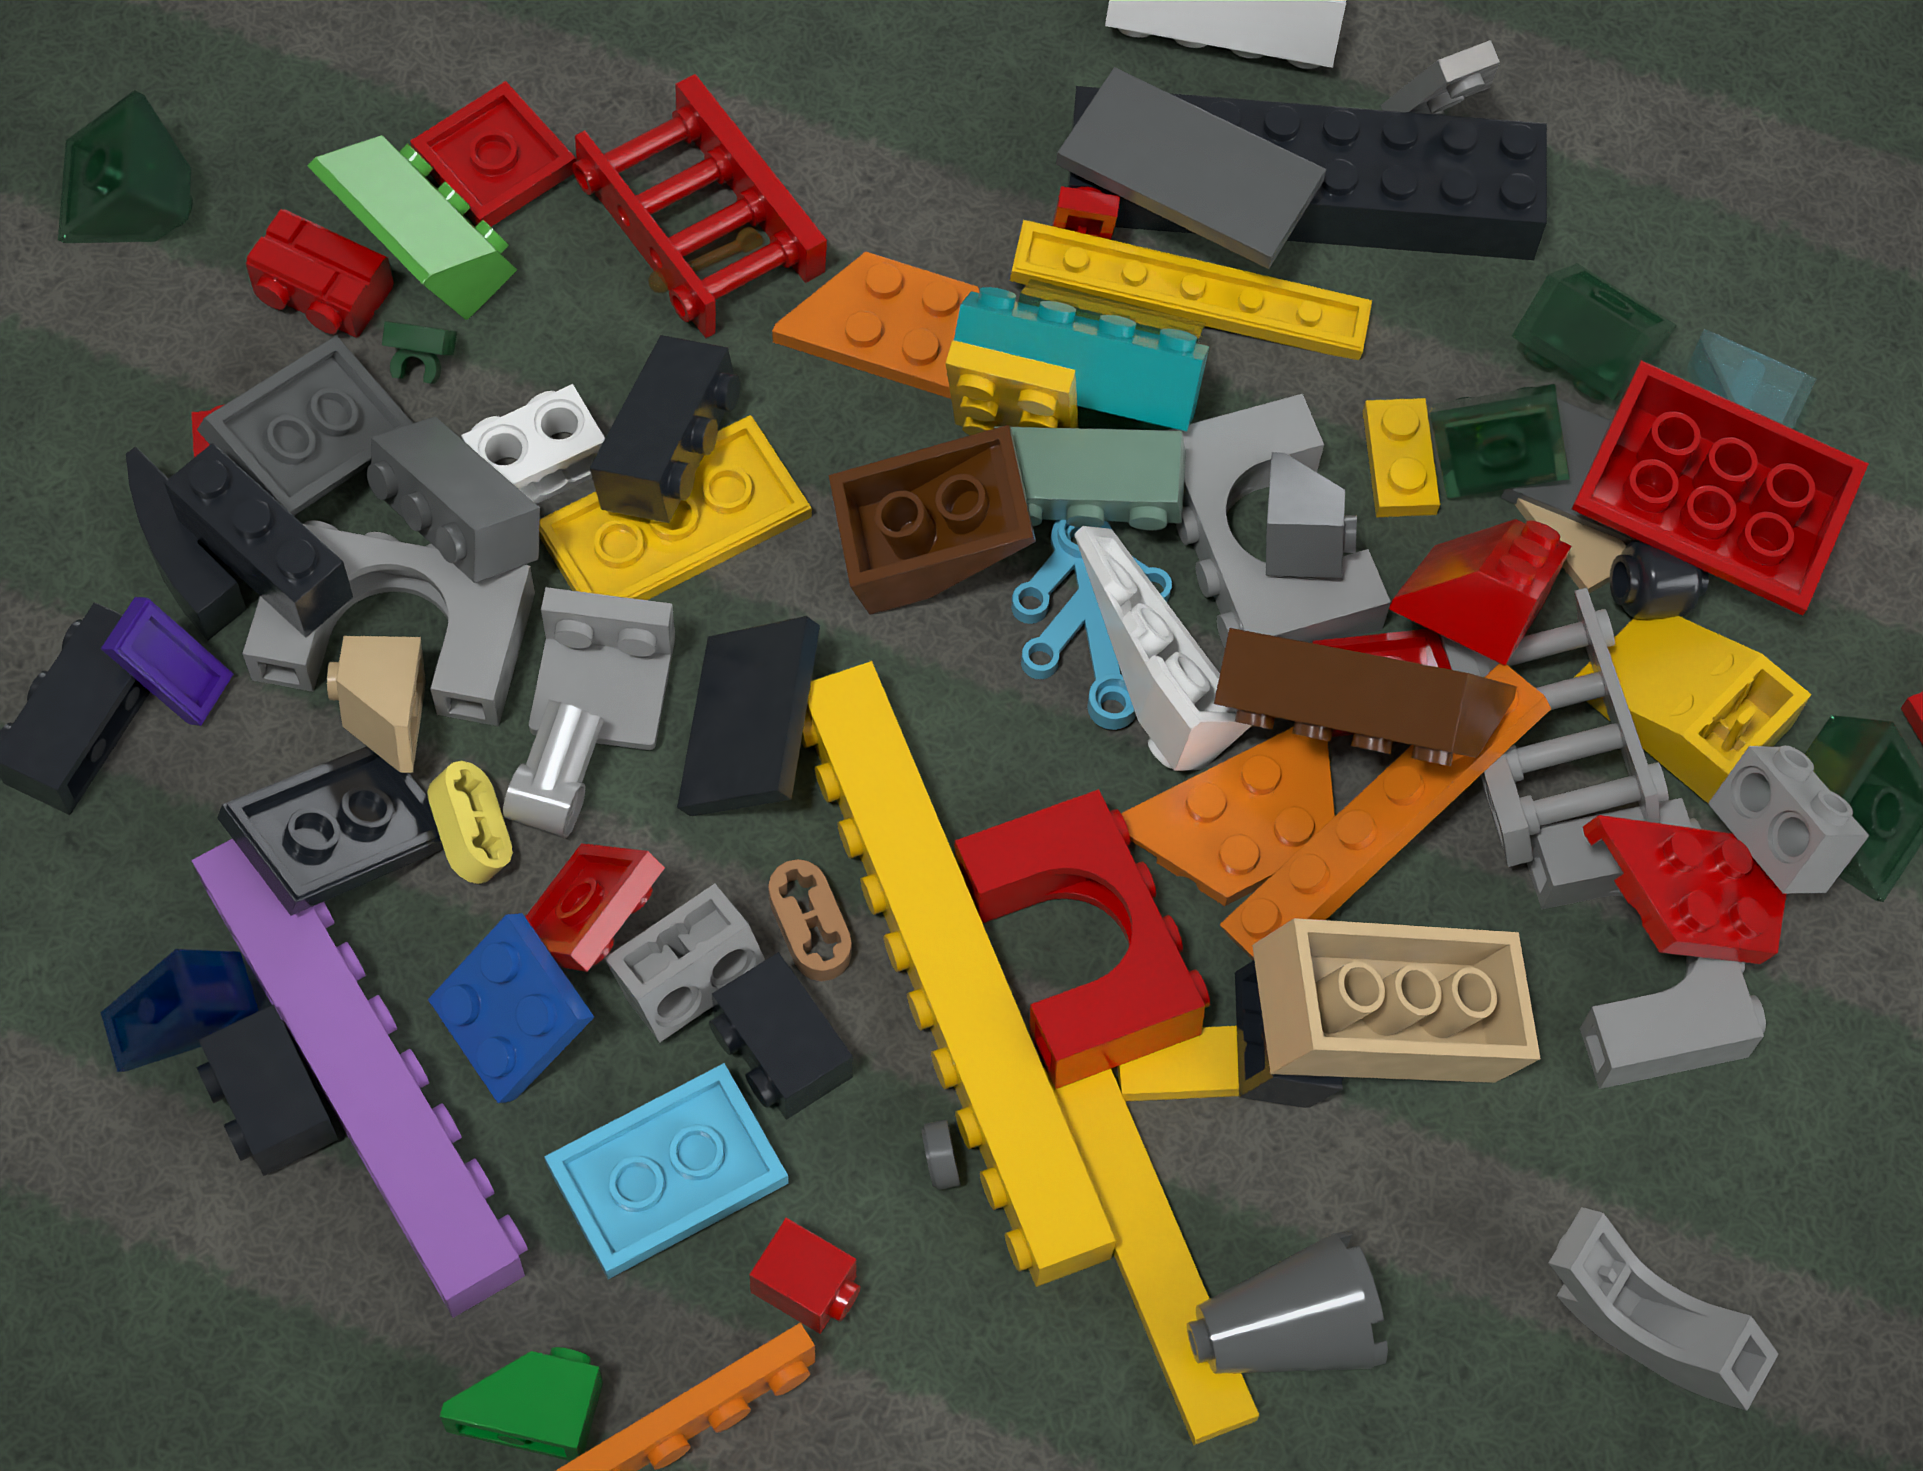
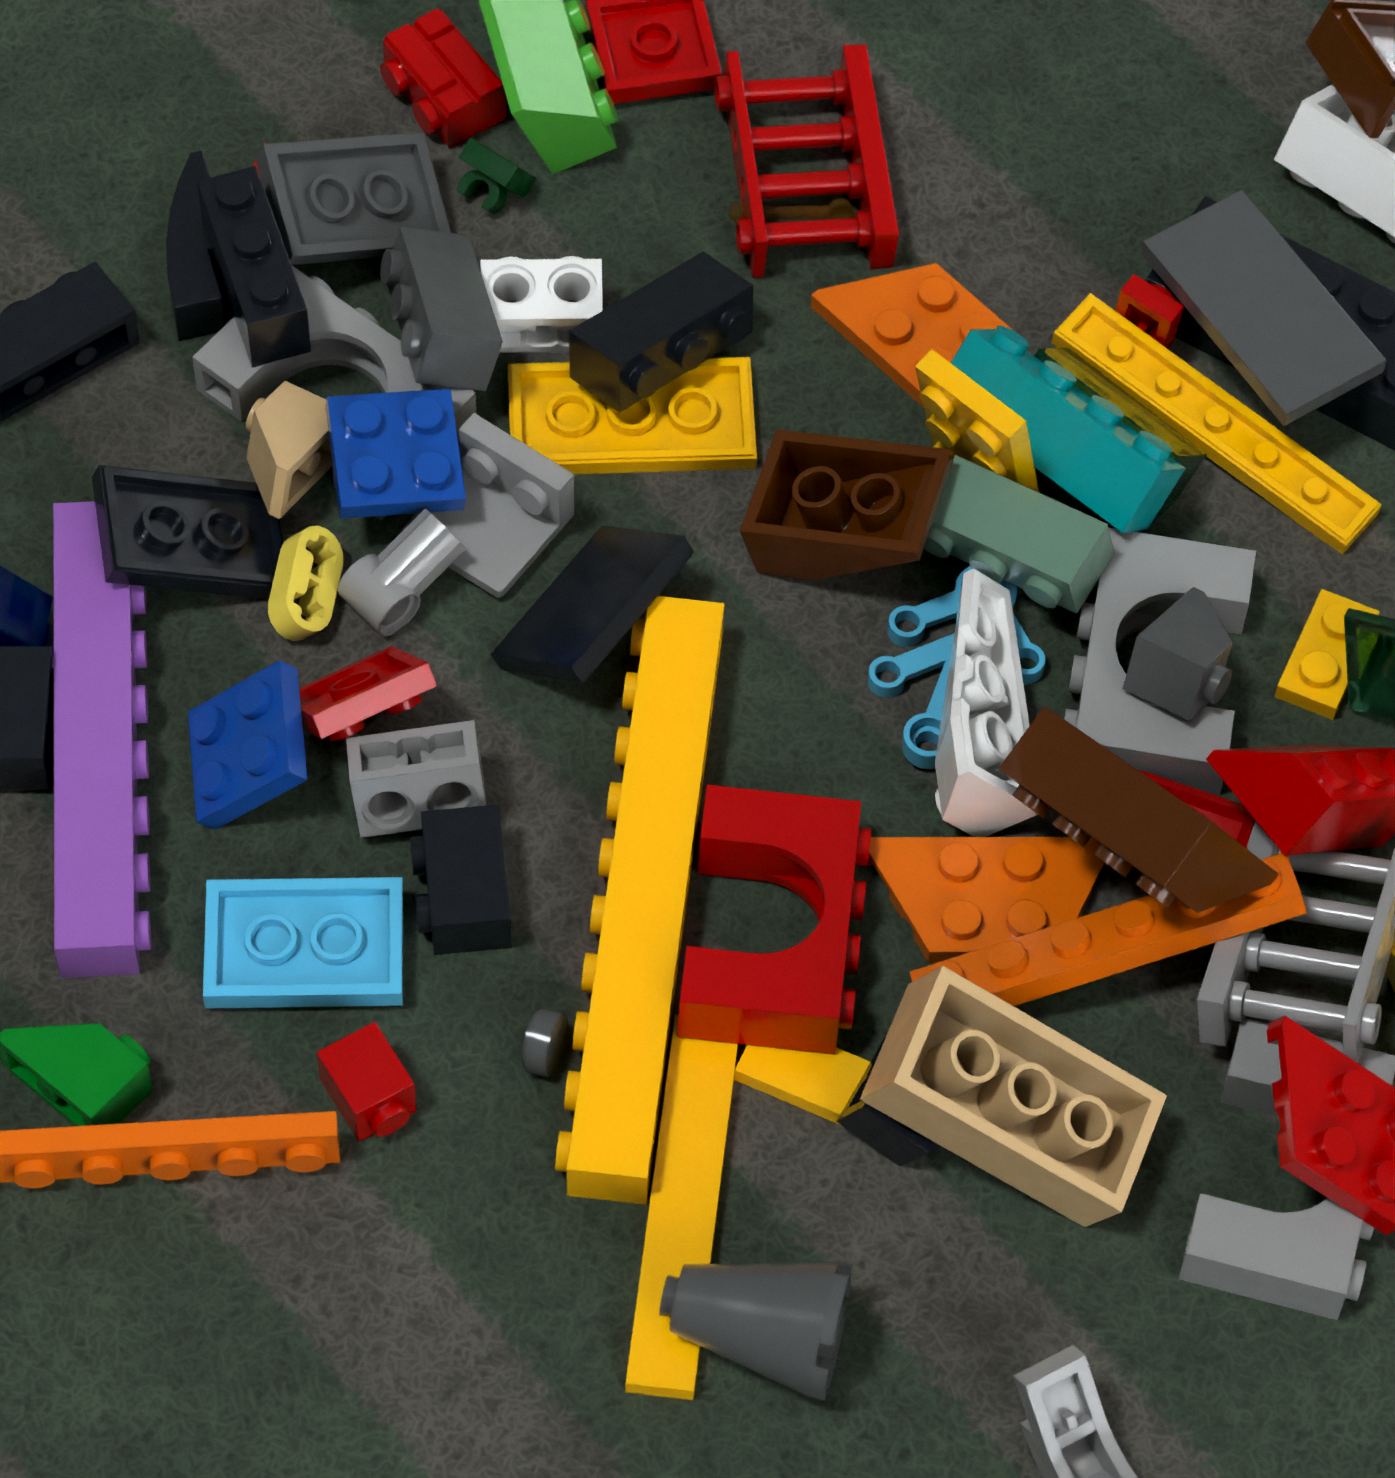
camera: 30 degrees right, 5 degrees down
(167, 661) = (128, 336): dark purple tile -> none
(492, 660) = (395, 453): none -> blue plate
(823, 914) = (536, 797): medium nougat beam -> none

